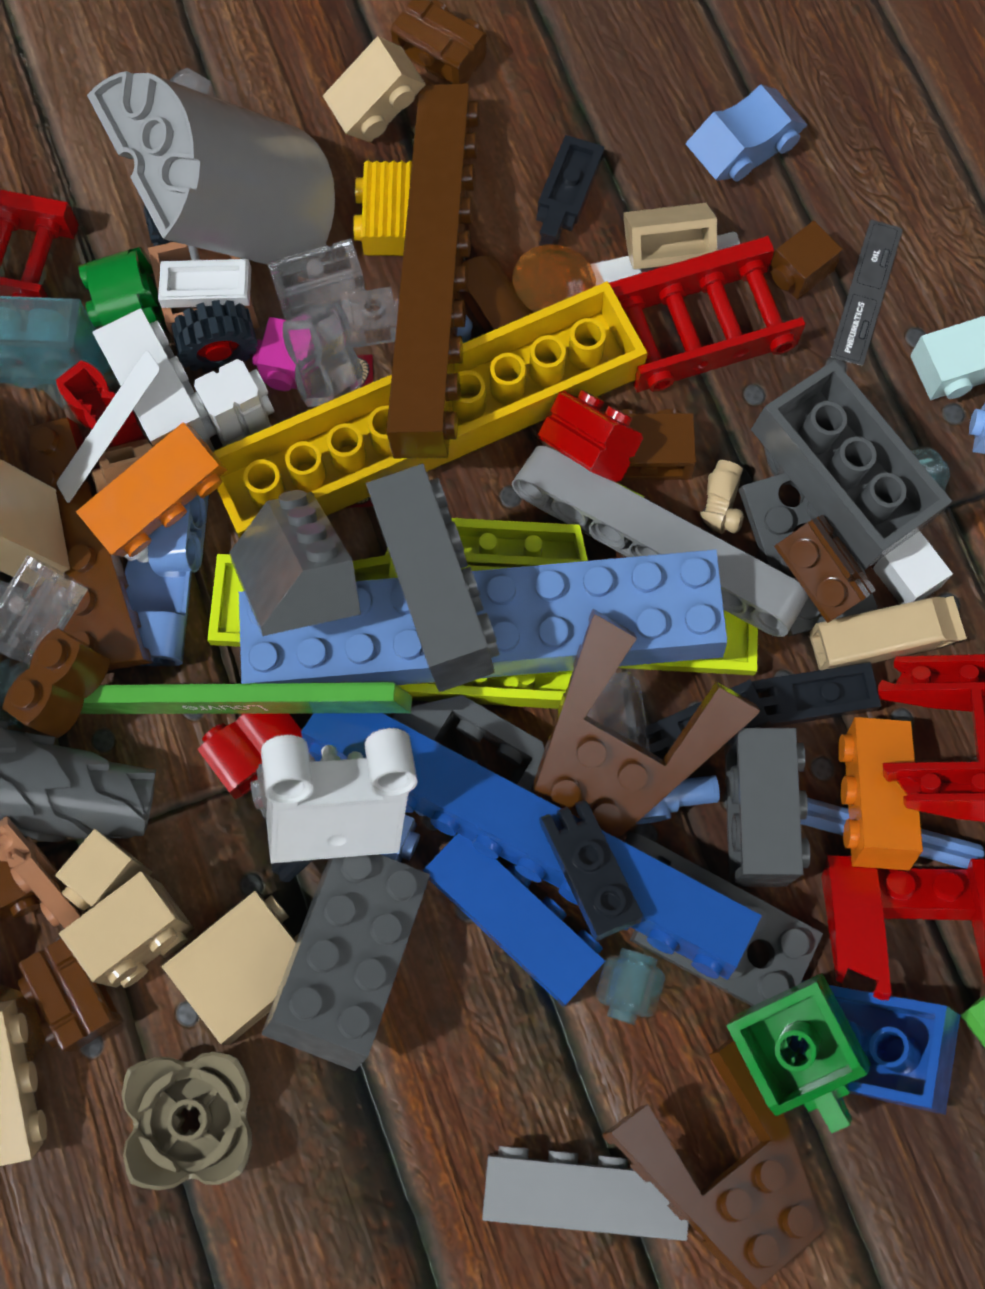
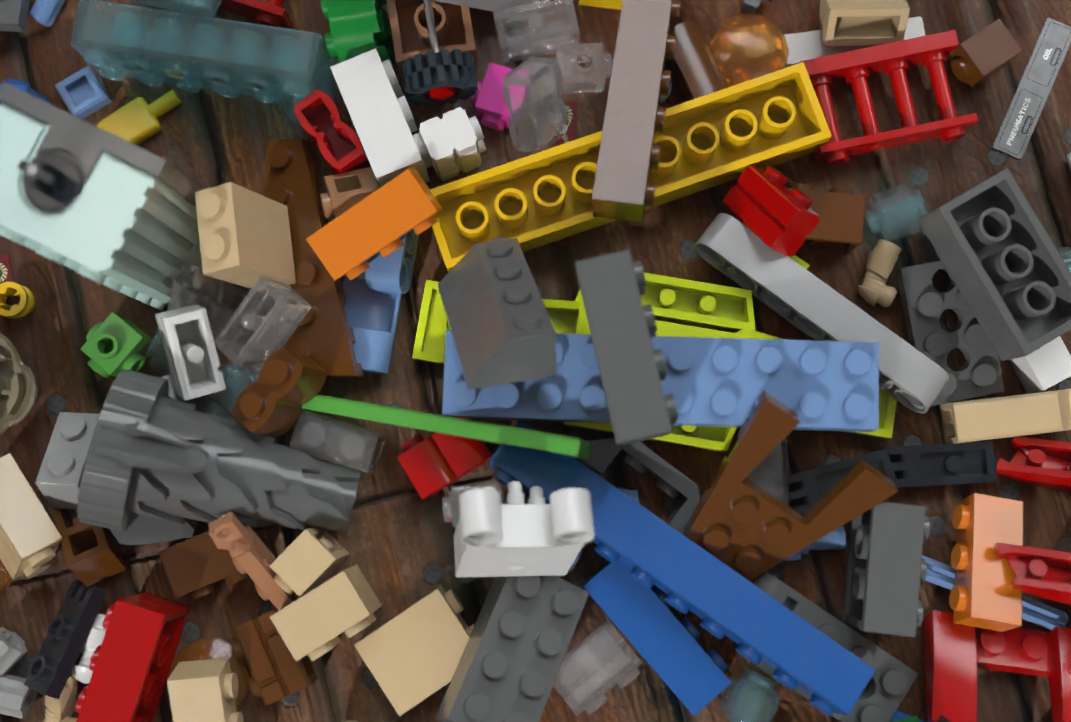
camera: 10 degrees right, 10 degrees up
(108, 425) = (339, 157): white sticker -> none
(130, 739) = (337, 441): none -> clear brick
(203, 281) = (434, 27): white tile -> none
(446, 967) = (595, 668): none -> clear brick
(591, 871) = (733, 616): black hinge -> none
(730, 431) = (896, 212): none -> clear light blue head
(824, 568) = (968, 358): reddish brown brick -> none

